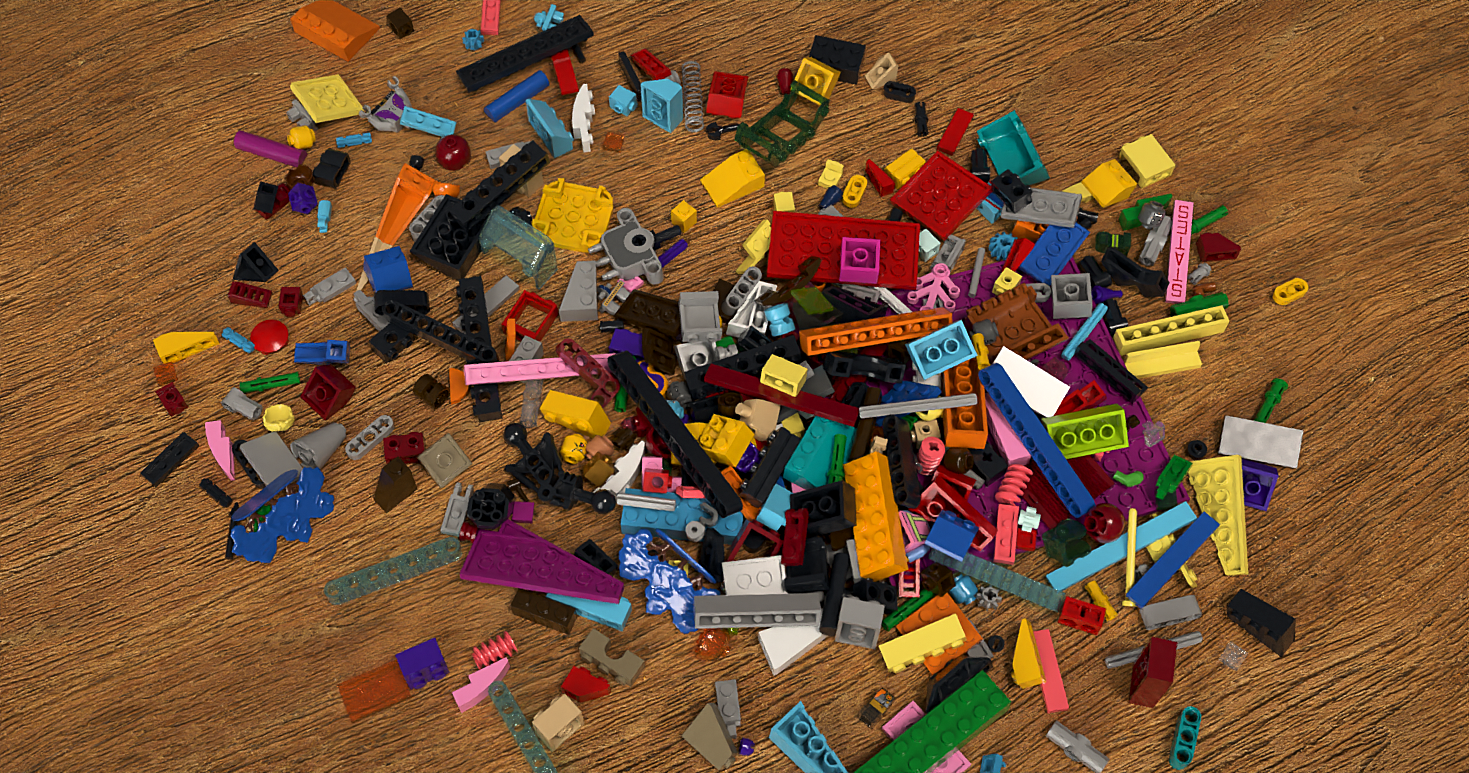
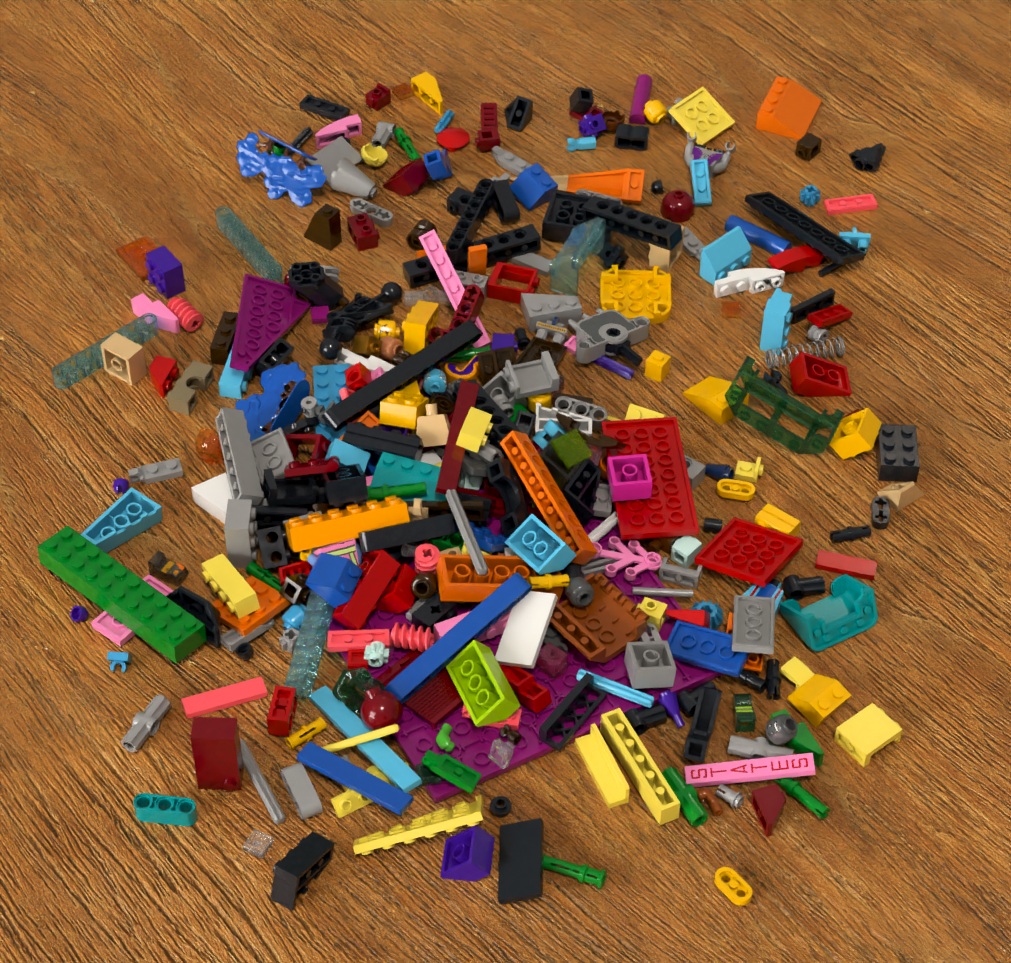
camera: 80 degrees right, 15 degrees down
(356, 139) = (669, 146): dark azure axle -> none
(444, 460) = (356, 254): dark tan tile -> none
(445, 188) = (632, 202): orange hair -> none
(646, 502) = (334, 373): light grey axle -> none
(711, 738) = (123, 457): dark tan slope -> none
(783, 202) = (696, 437): light yellow brick -> none
(880, 180) = (754, 505): red slope -> none
(1011, 191) = (759, 592): black brick -> none
(1027, 661) = (234, 671): yellow slope -> none

